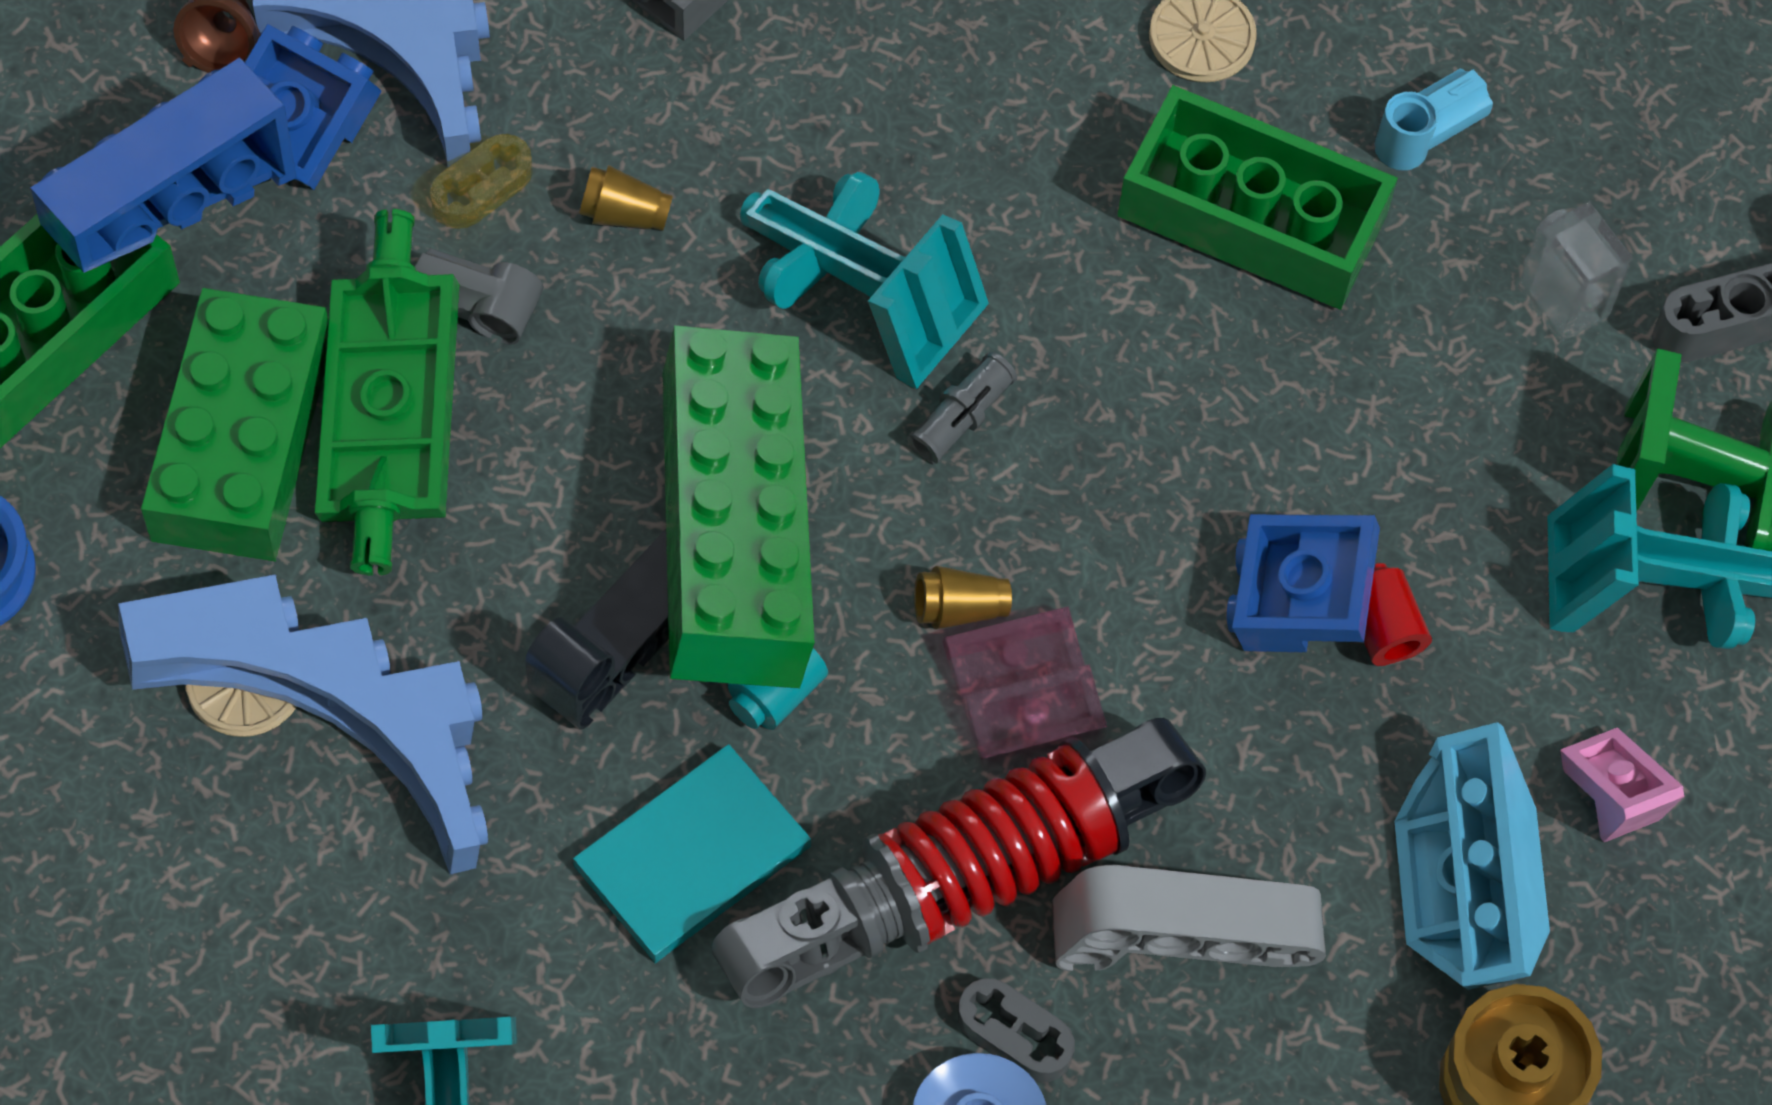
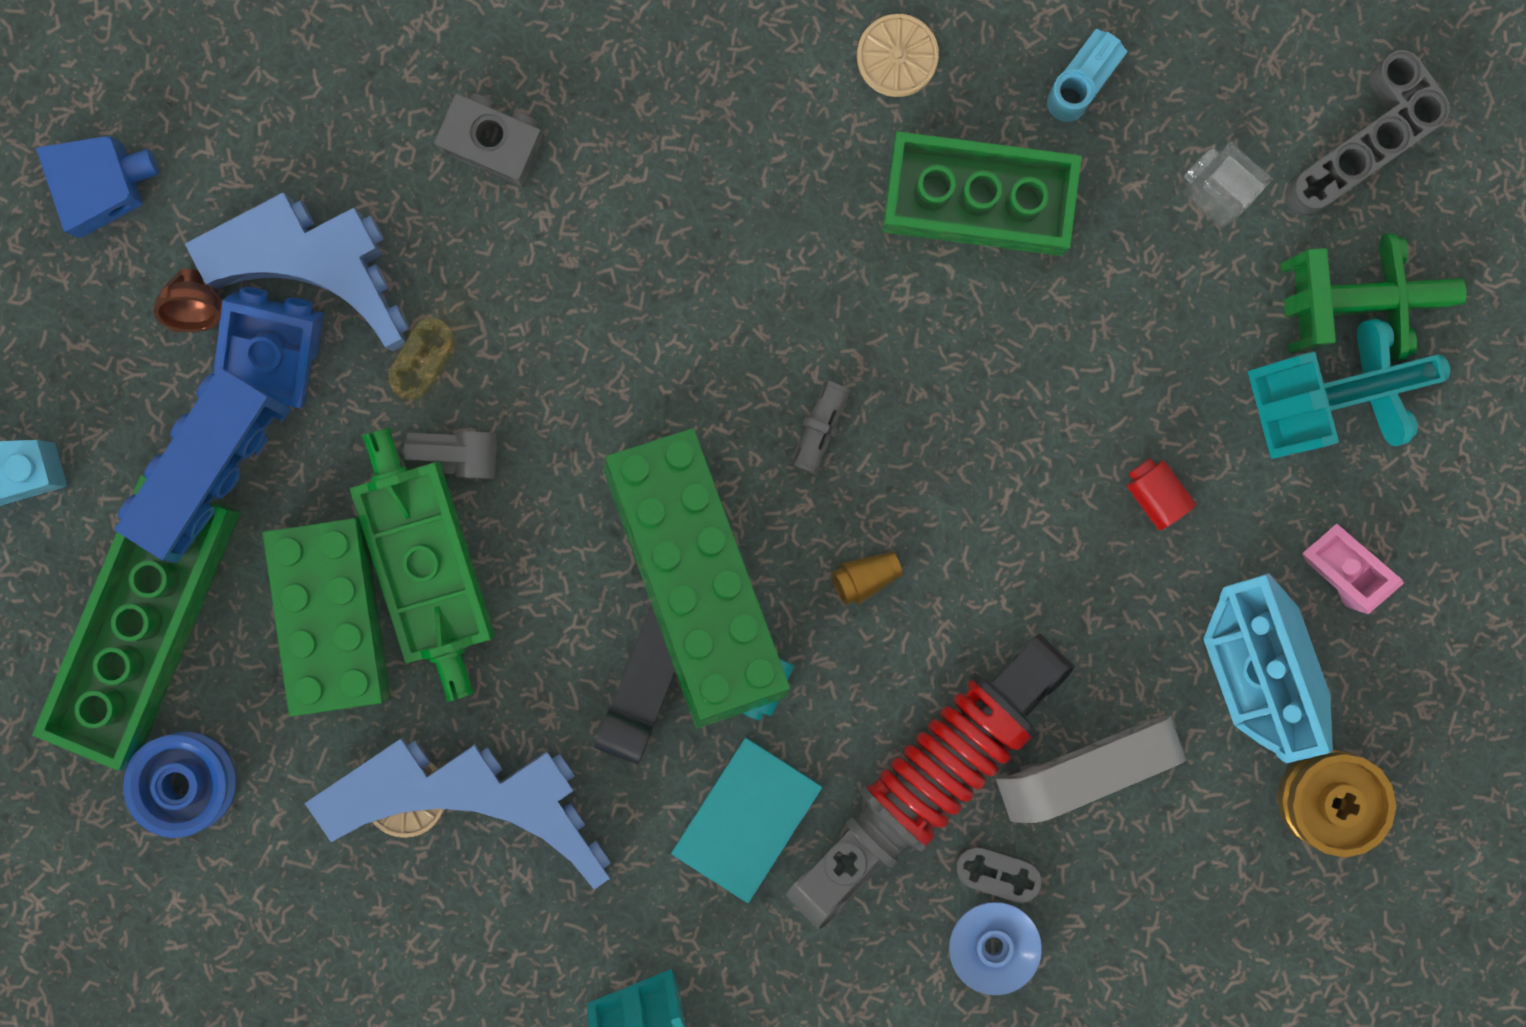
camera: 15 degrees left, 25 degrees up
(624, 201) = (528, 343): pearl gold cone -> none
(916, 299) = (769, 362): teal piece -> none
(1024, 683) = (927, 622): clear pink slope -> none
(1303, 581) = (1100, 495): blue plate -> none

